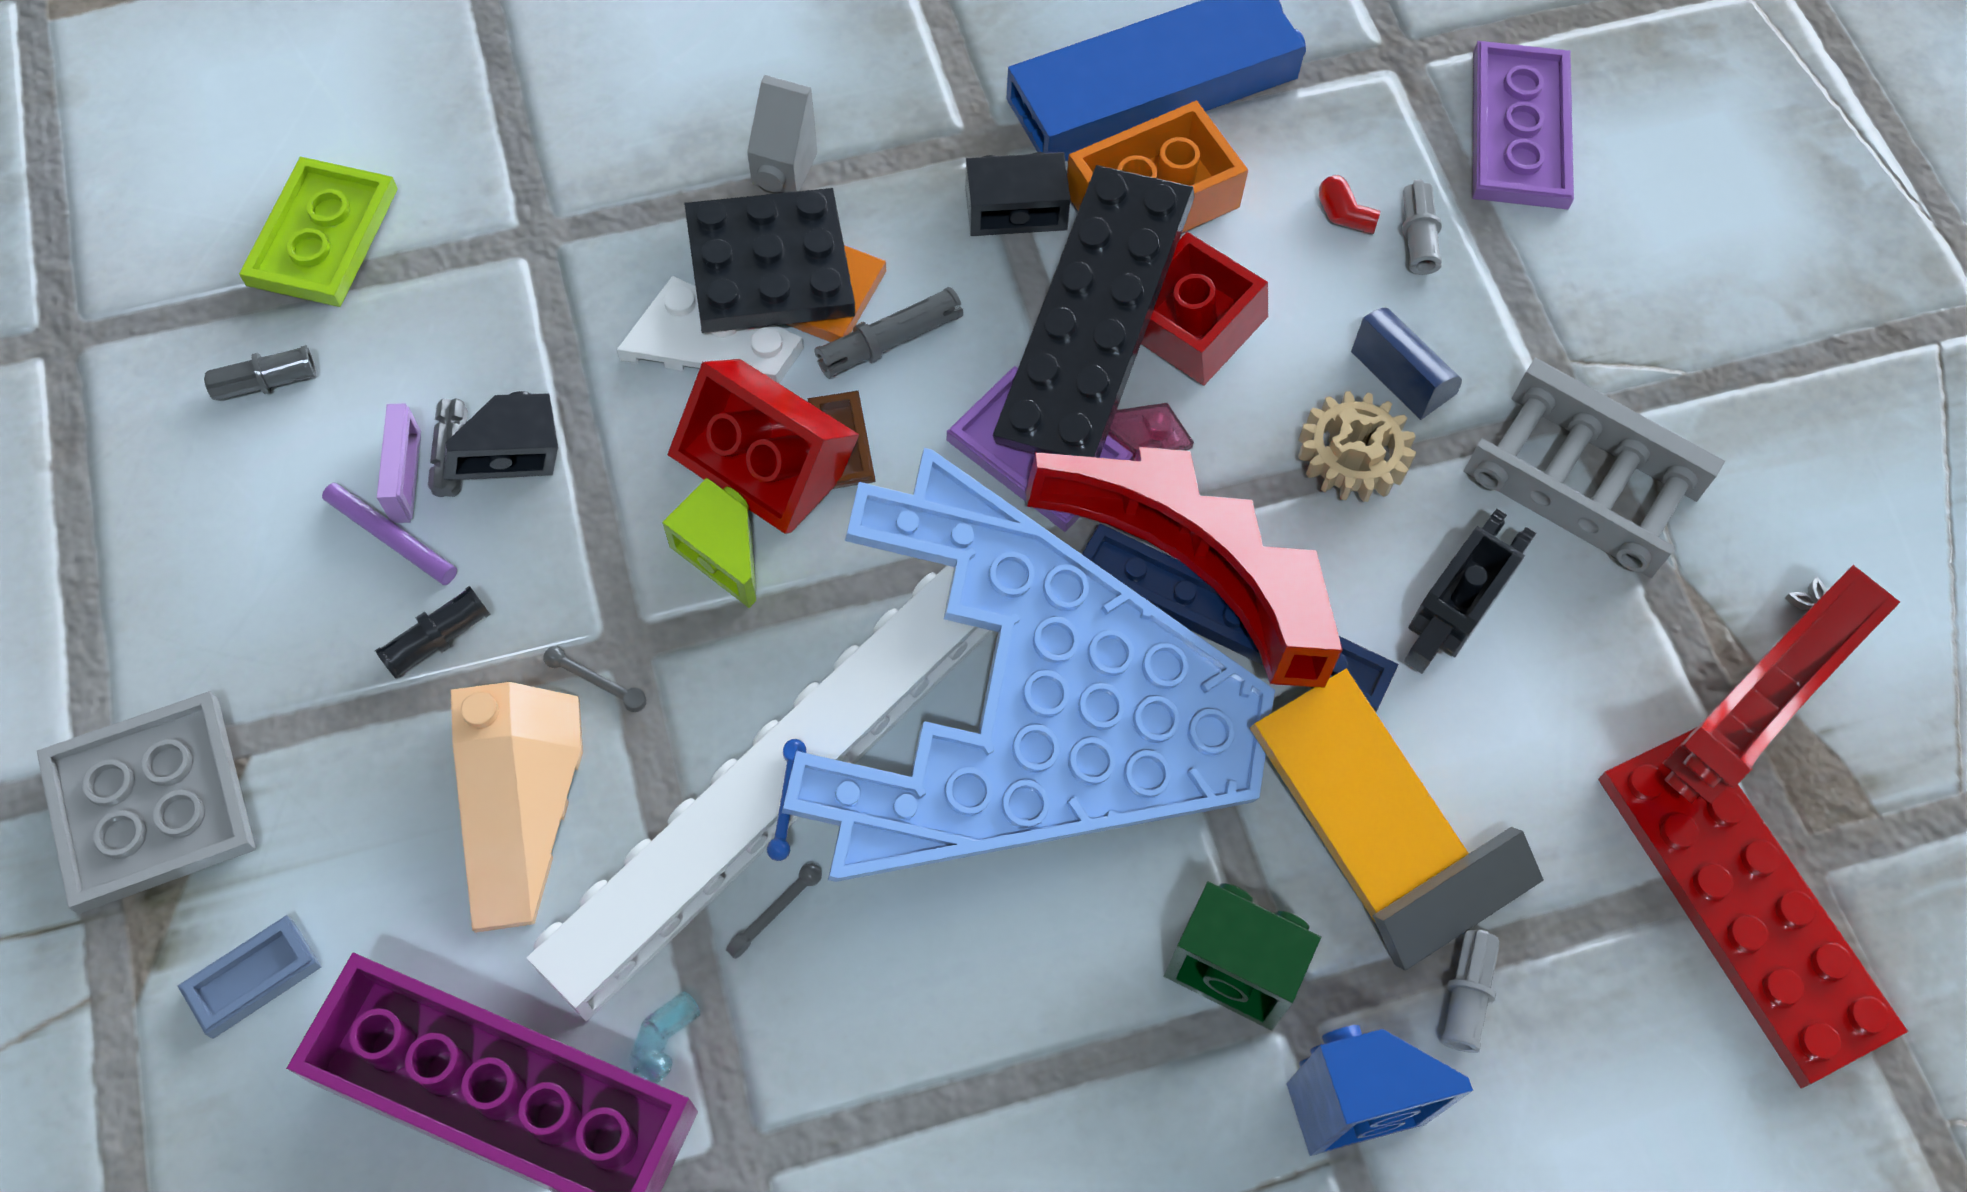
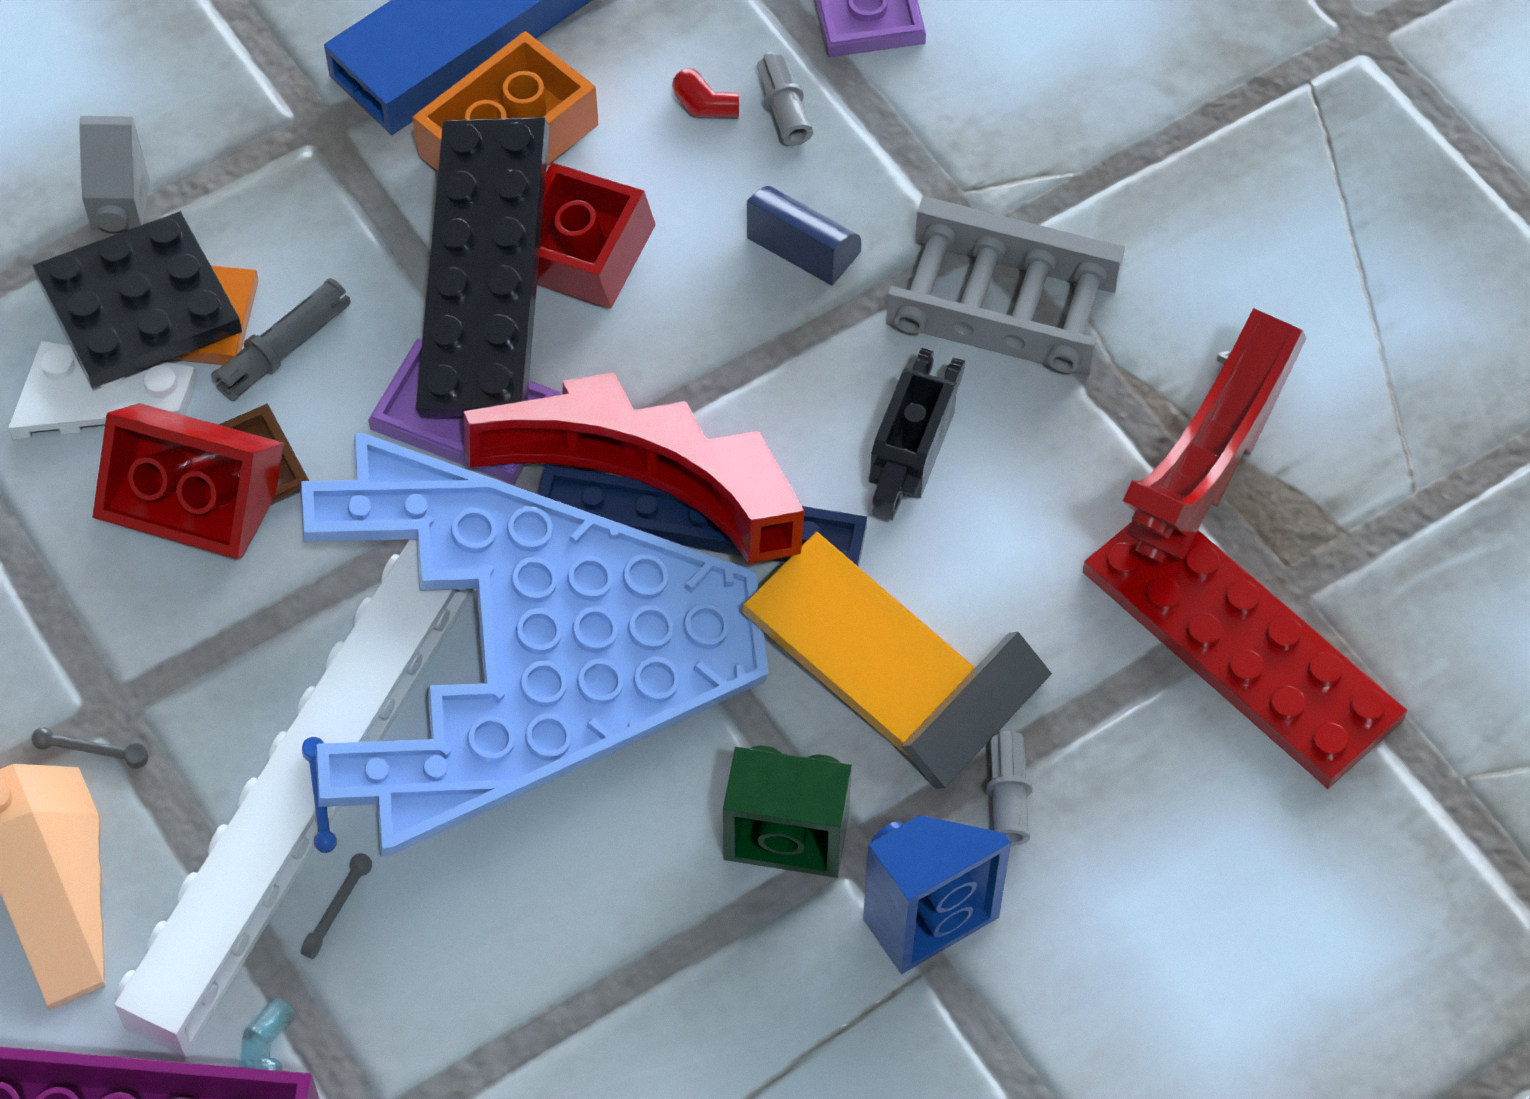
camera: 15 degrees left, 5 degrees down
(716, 537) = (169, 581): lime slope -> none
(1017, 194) = (370, 169): black brick -> none
(1149, 427) = (568, 361): clear pink piece -> none
(1356, 446) = (774, 326): tan gear -> none

